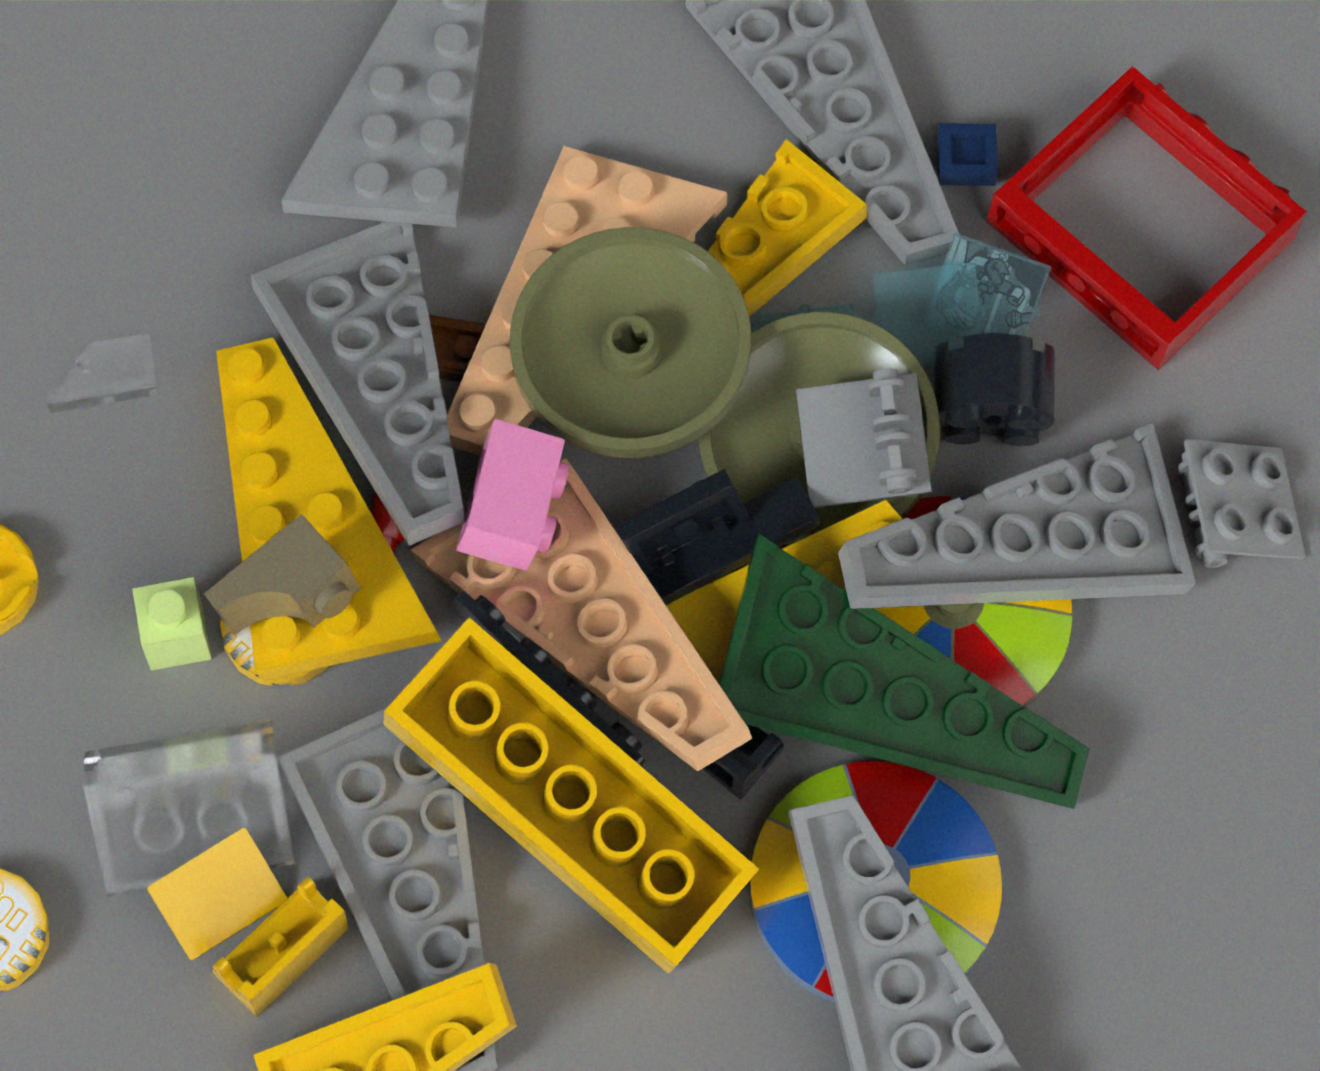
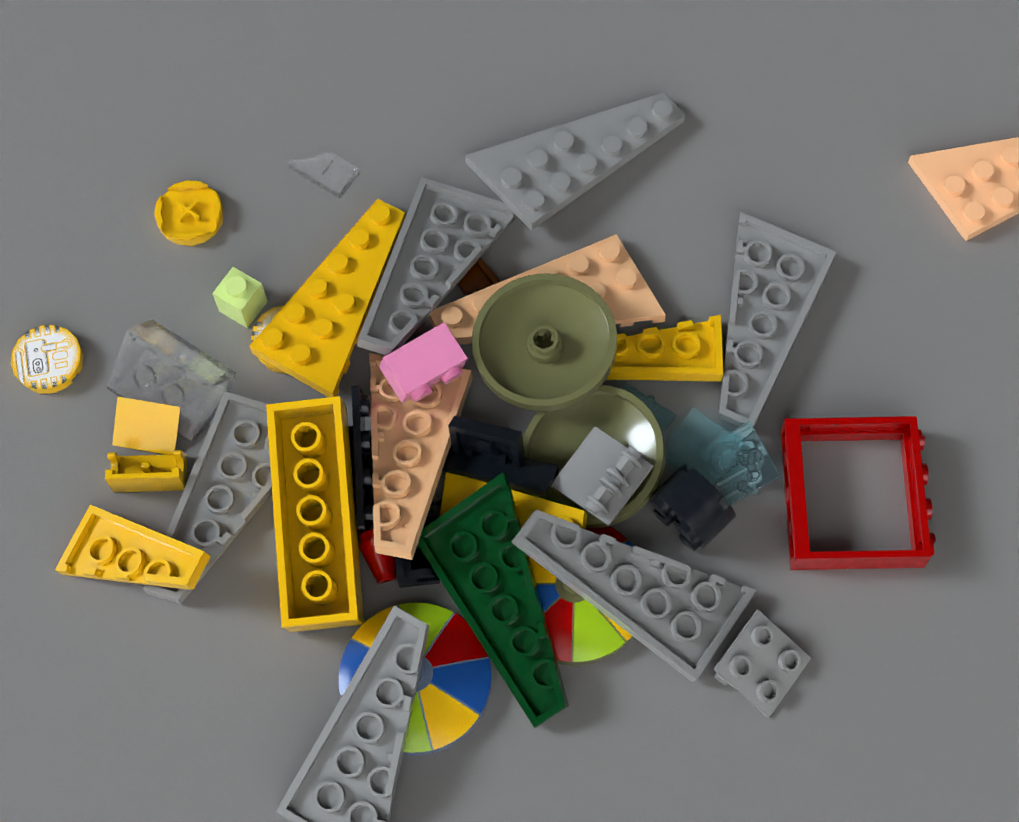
camera: 50 degrees right, 0 degrees up
(285, 577) = (296, 314): dark tan arch -> none
(698, 790) = (382, 566): none -> red cone
(967, 154) = (798, 391): dark blue plate -> none

